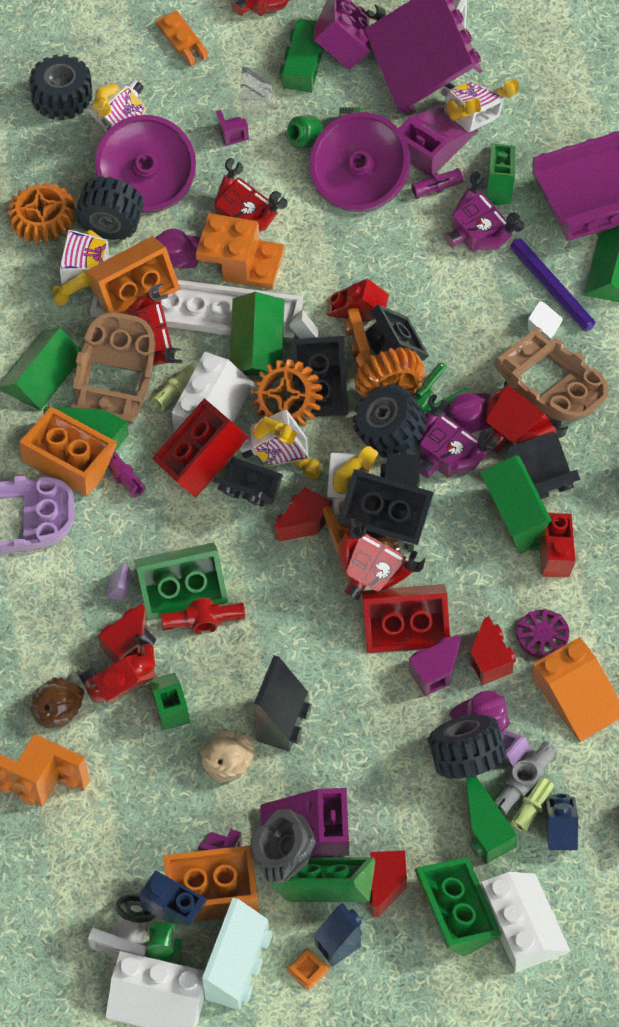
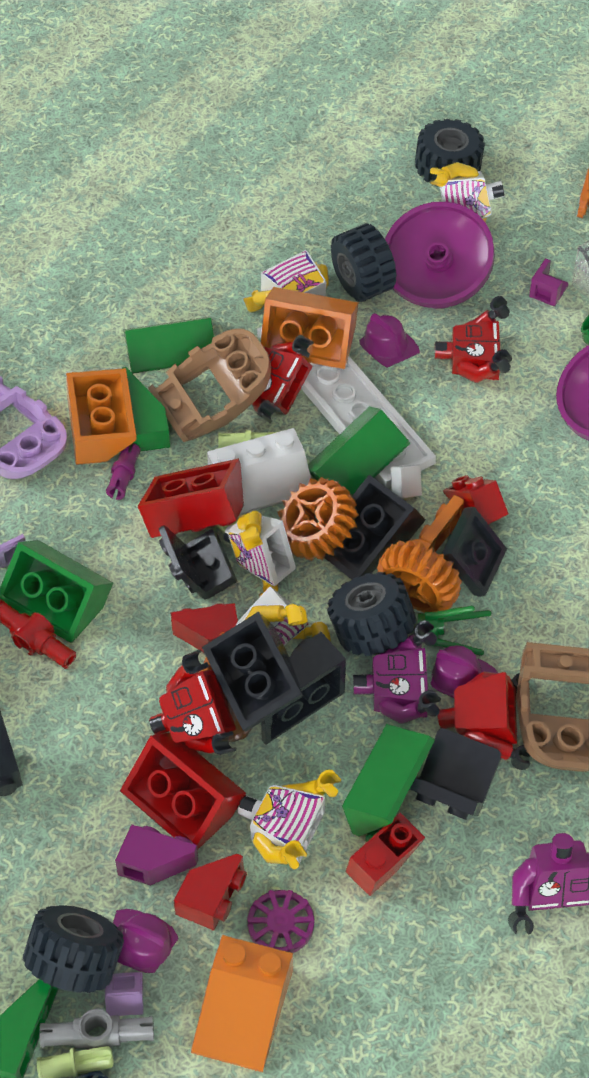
camera: 45 degrees right, 5 degrees down
(26, 216) = (317, 224): orange gear -> none
(240, 251) = (427, 378): orange bracket -> none
(483, 577) = (288, 818): none -> torso

